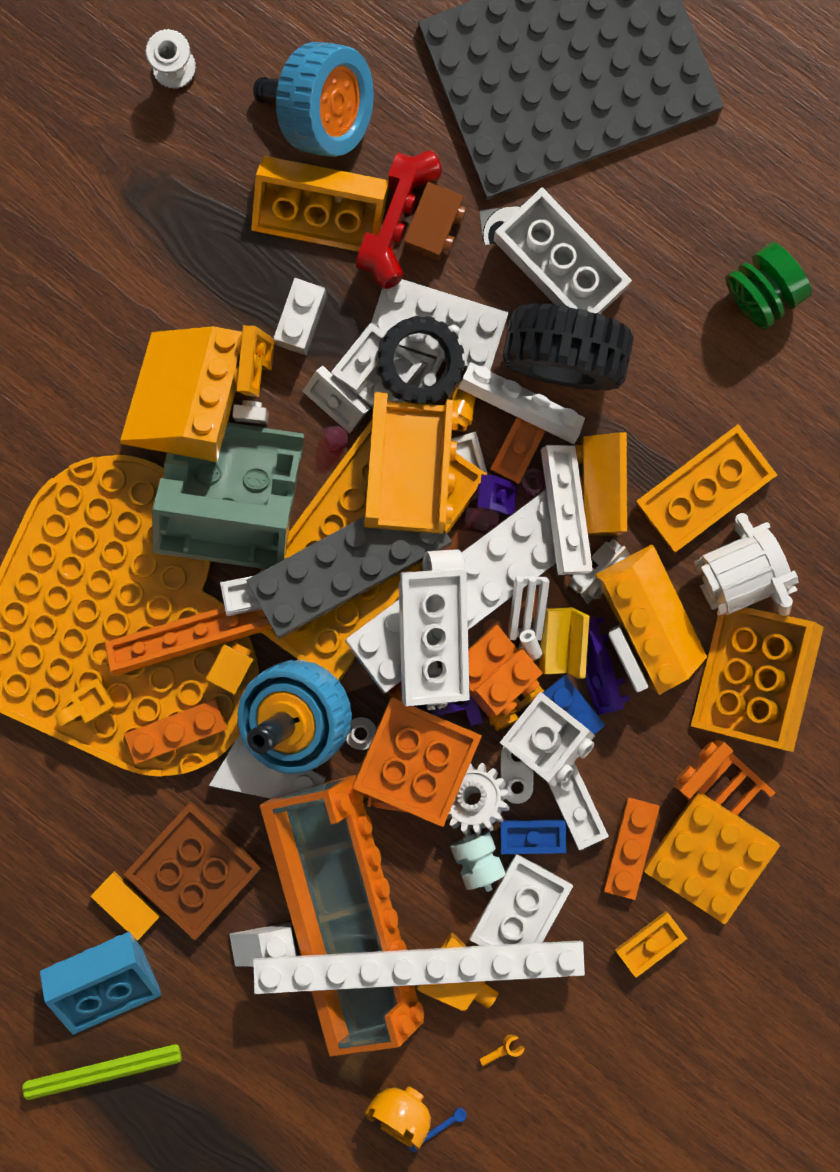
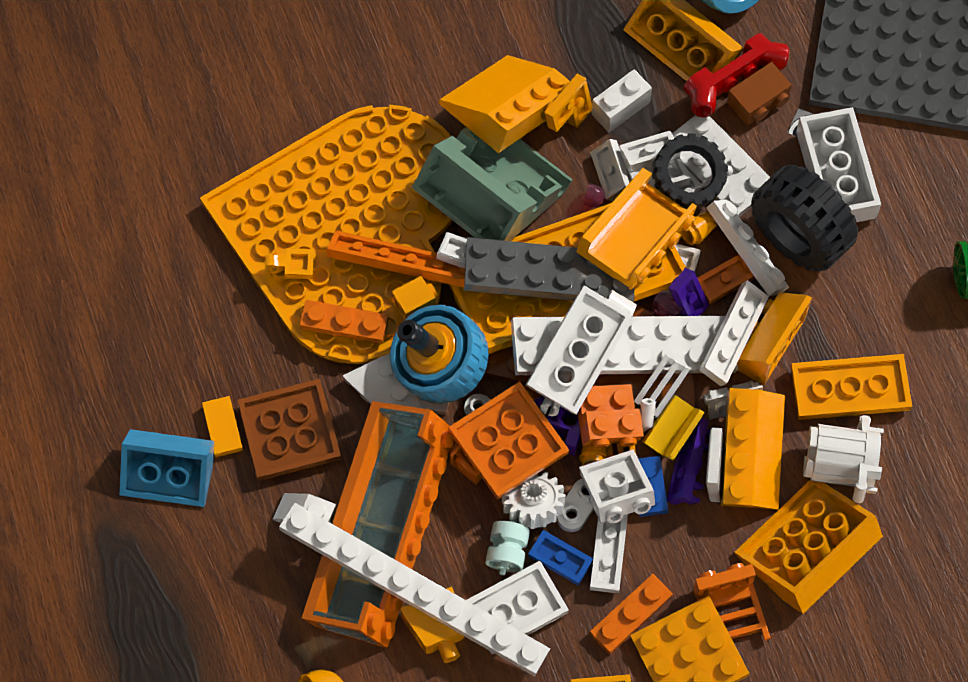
camera: 35 degrees right, 20 degrees down
(101, 1072) = (122, 533): lime axle -> none
(250, 413) = (543, 144): white plate -> none
(539, 480) = (720, 301): clear pink hinge -> none

